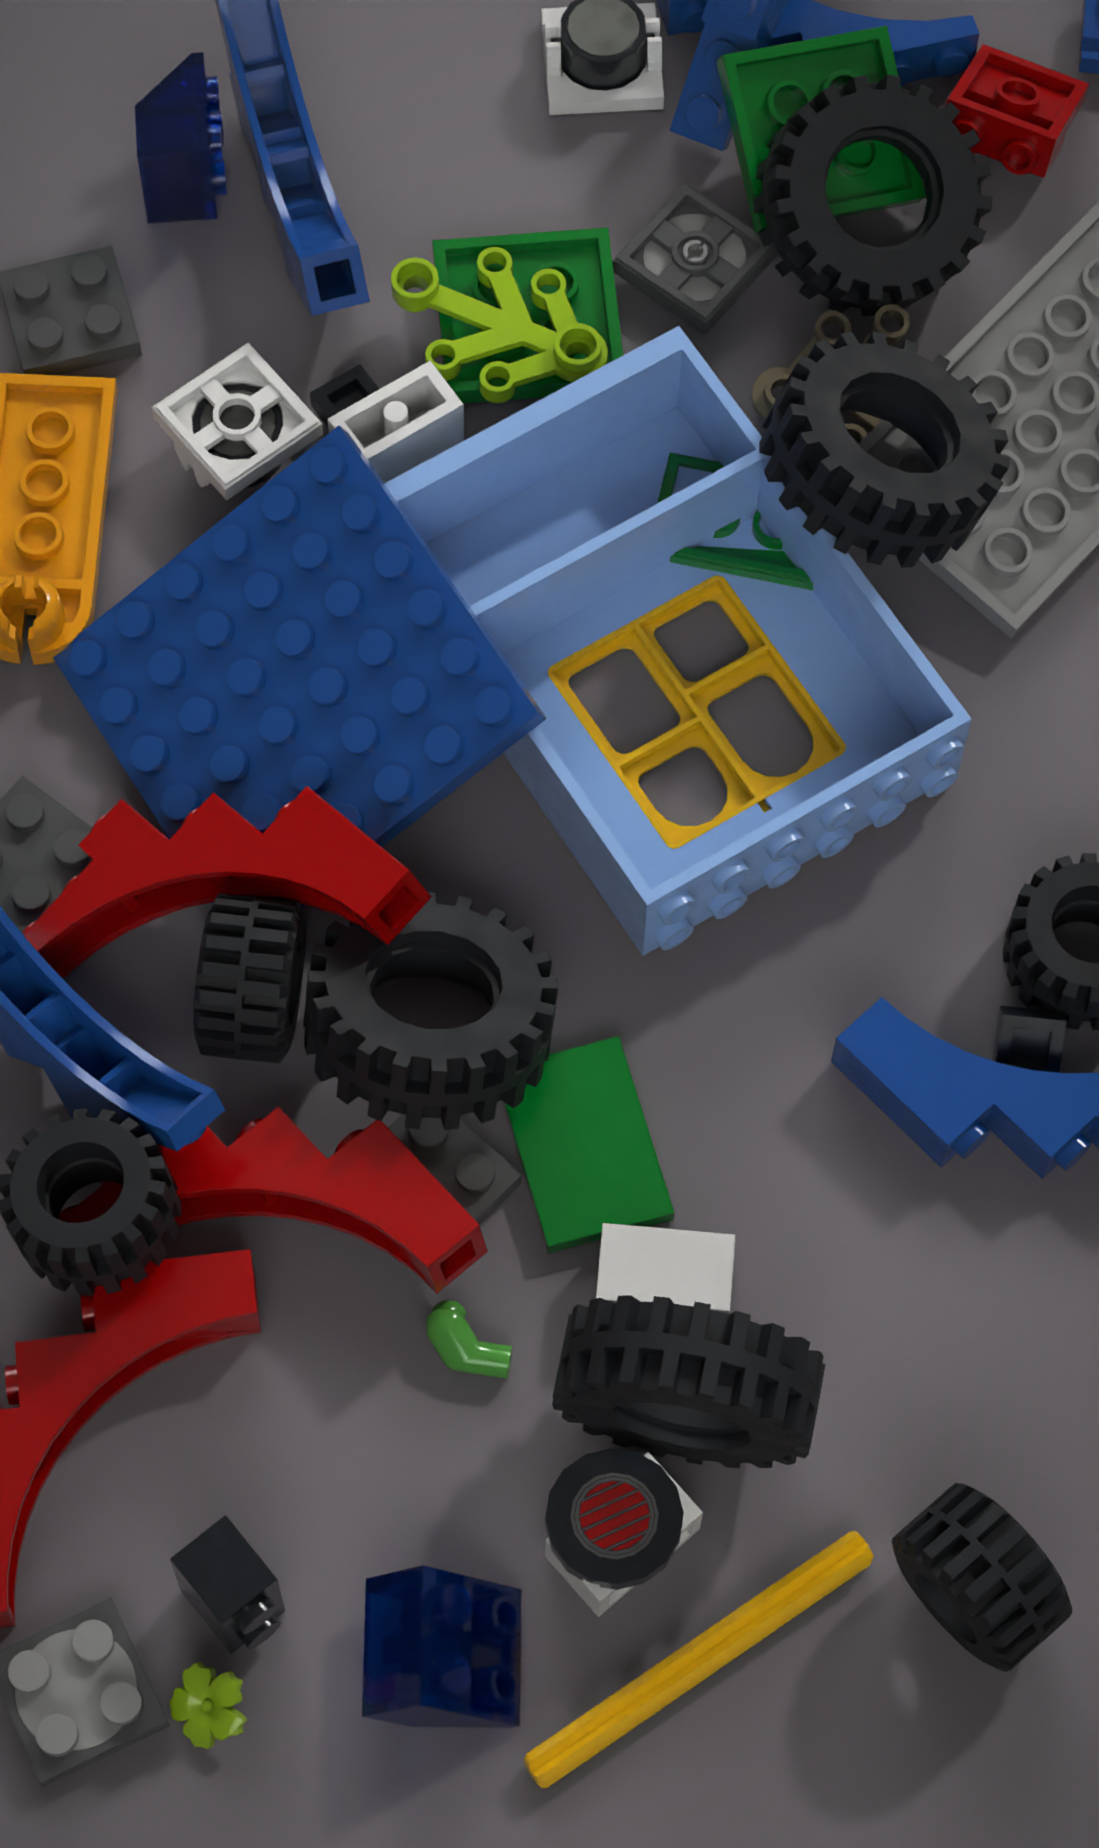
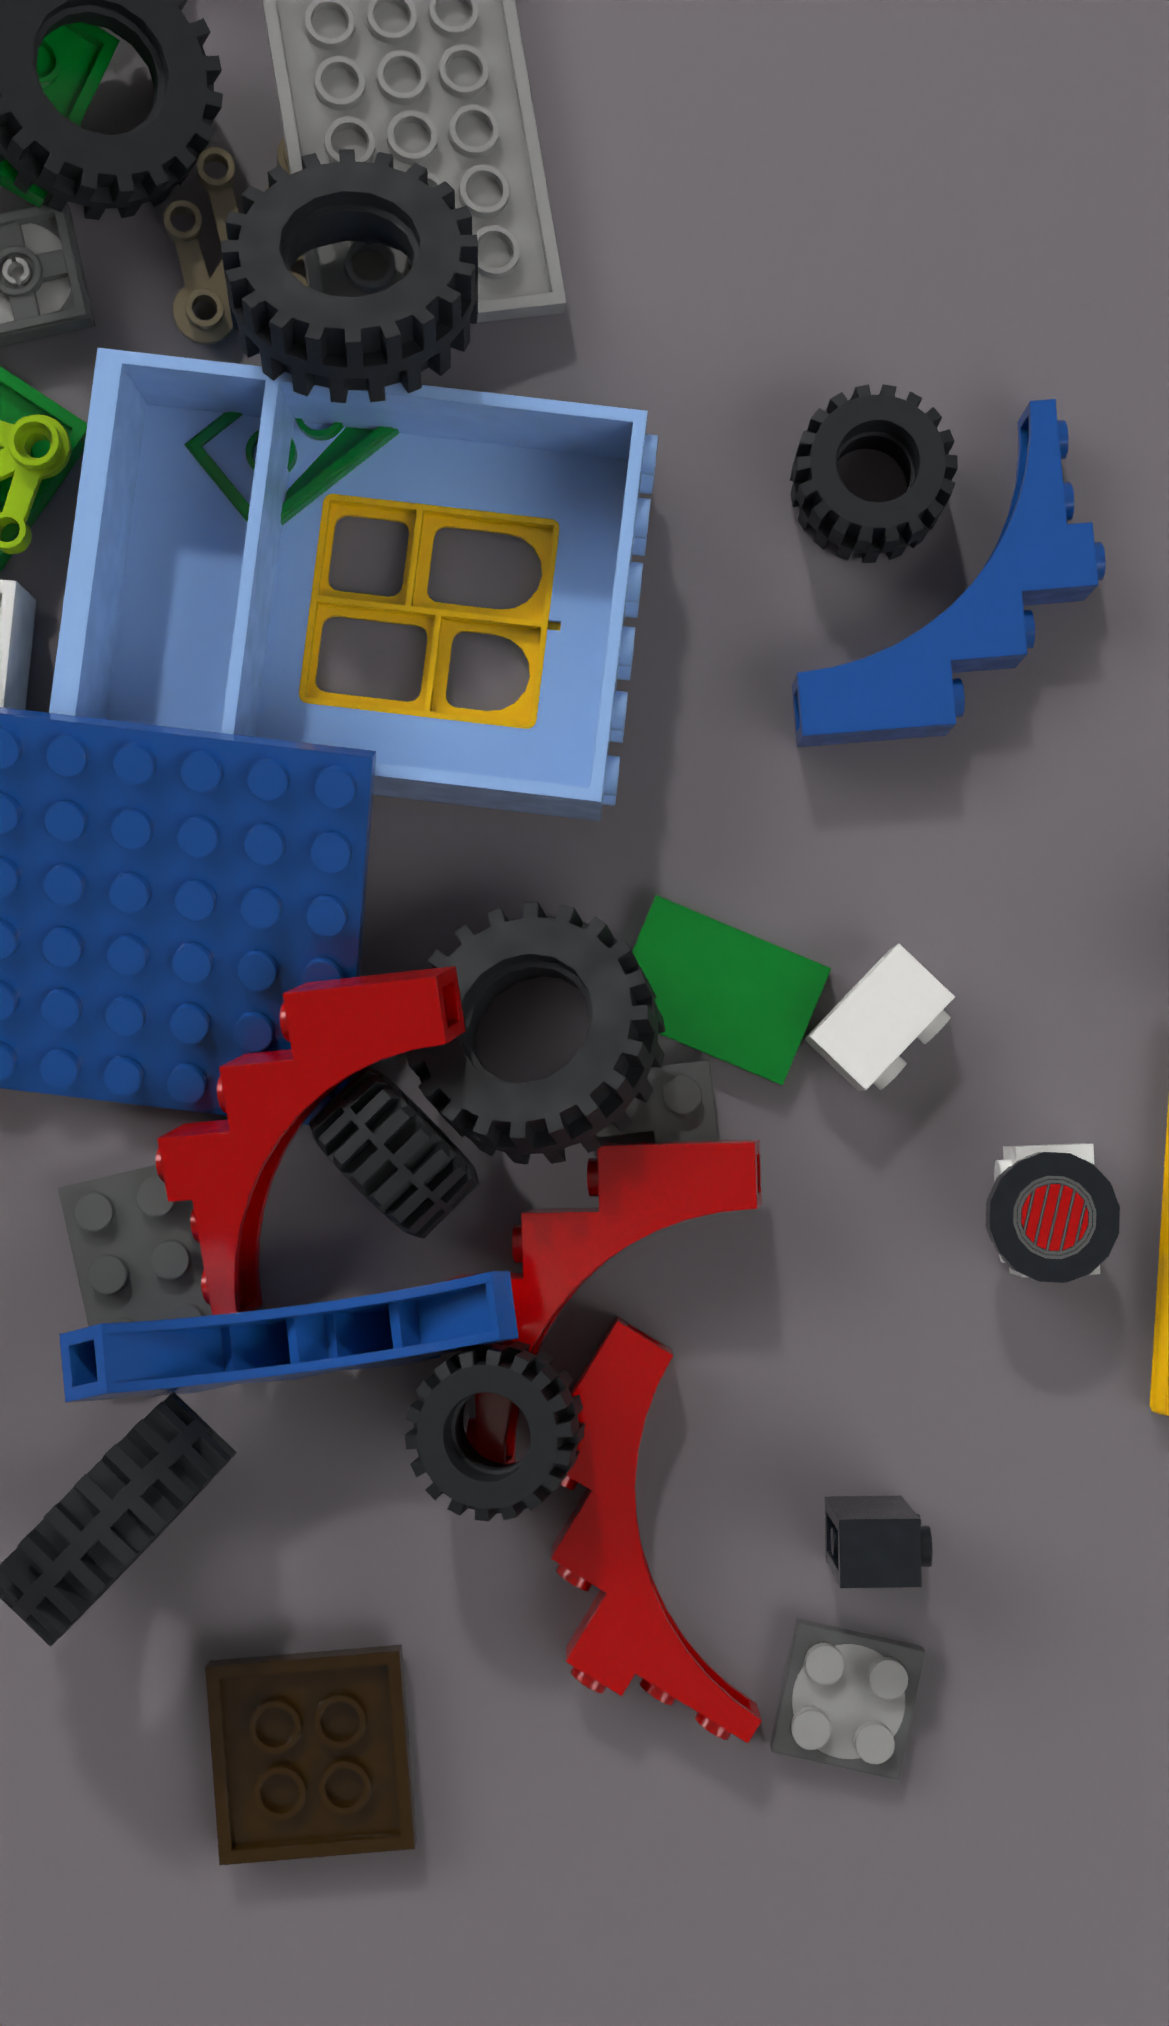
camera: 45 degrees left, 20 degrees up
(207, 1705) = (938, 1614): lime plant -> none
(441, 1650) = (1034, 1413): clear blue slope -> none
(459, 1346) = (803, 1212): bright green arm -> none
(689, 1382) = (1012, 1086): black tyre -> none
(1030, 1038) = (913, 588): black plate -> none

